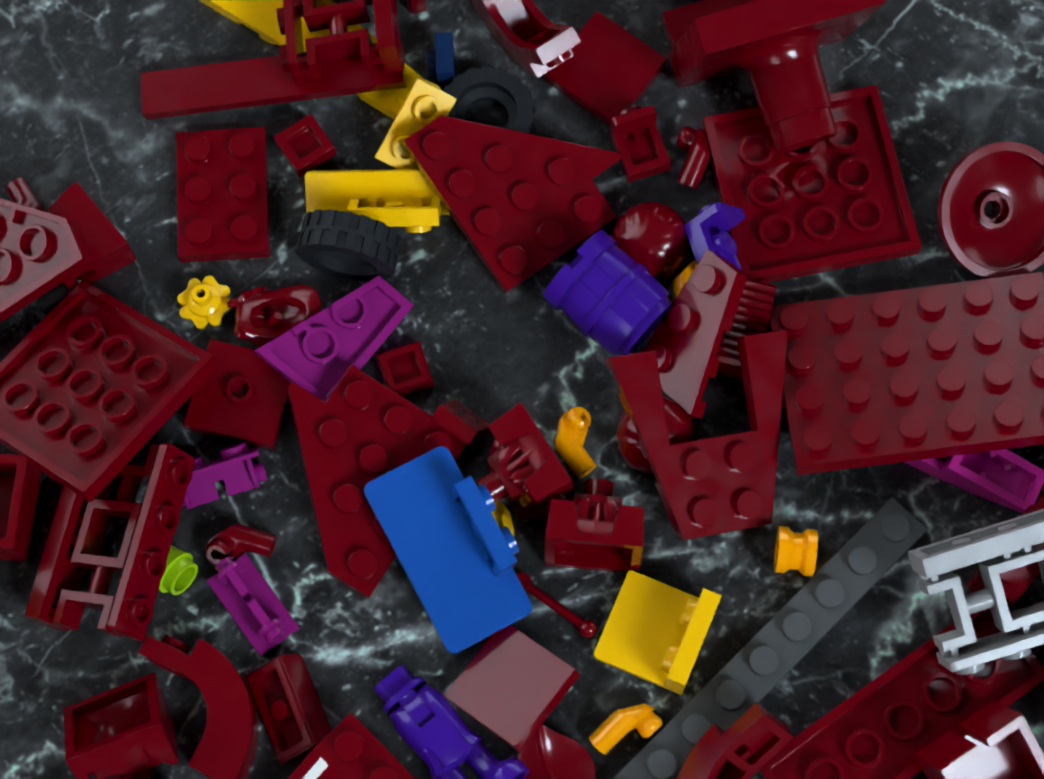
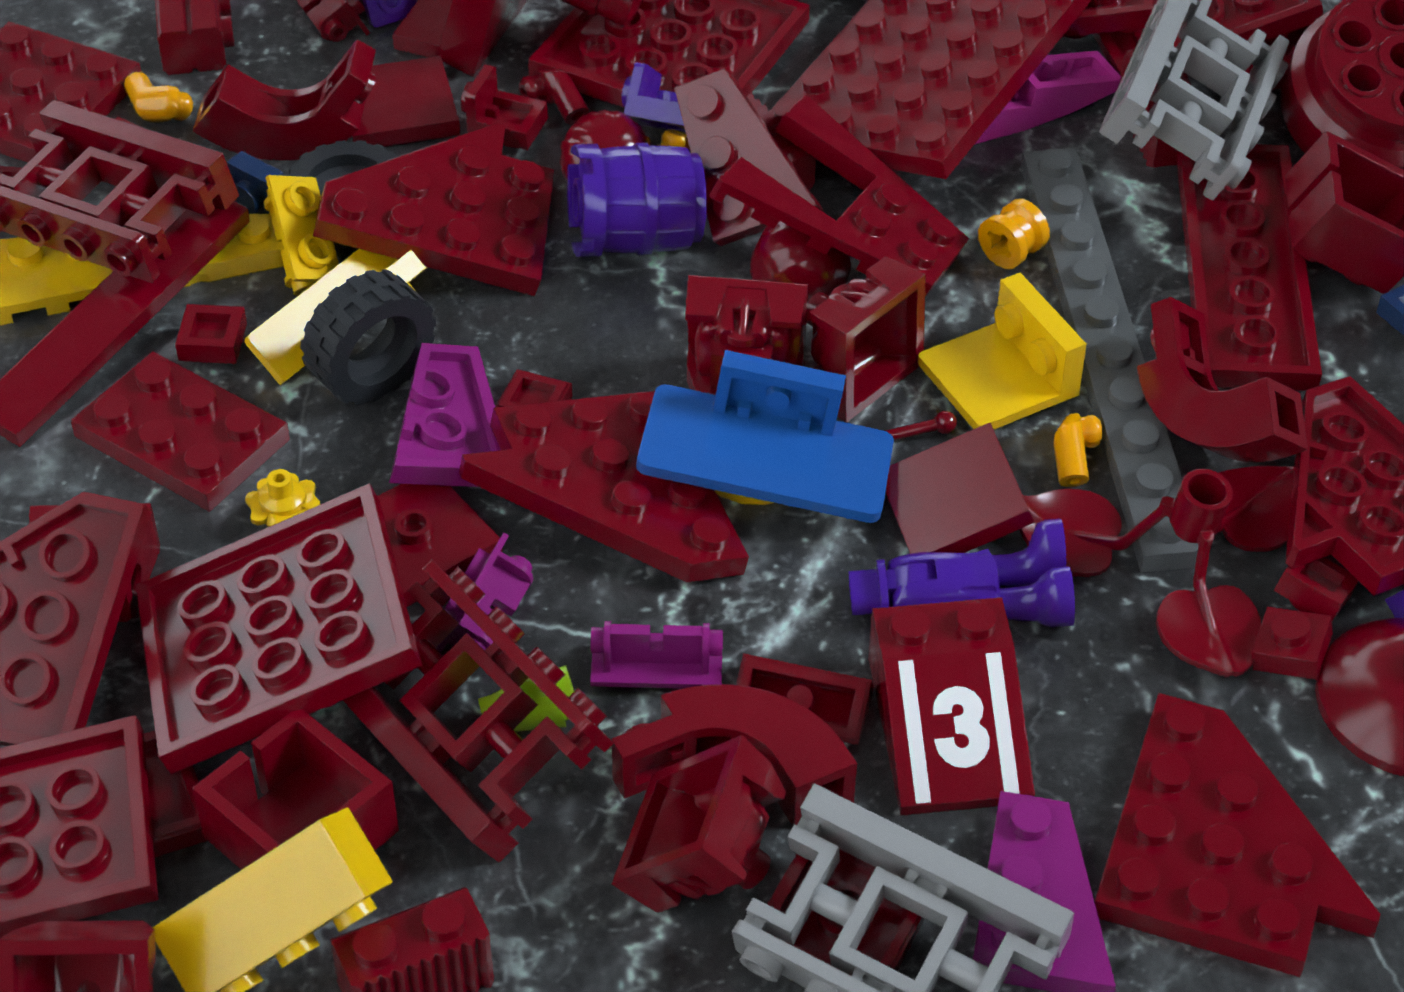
camera: 55 degrees left, 25 degrees down
(236, 541) = (571, 631): dark red arm -> none
(269, 314) = (362, 452): dark red hat -> none
(461, 422) = (640, 376): dark red tile -> none

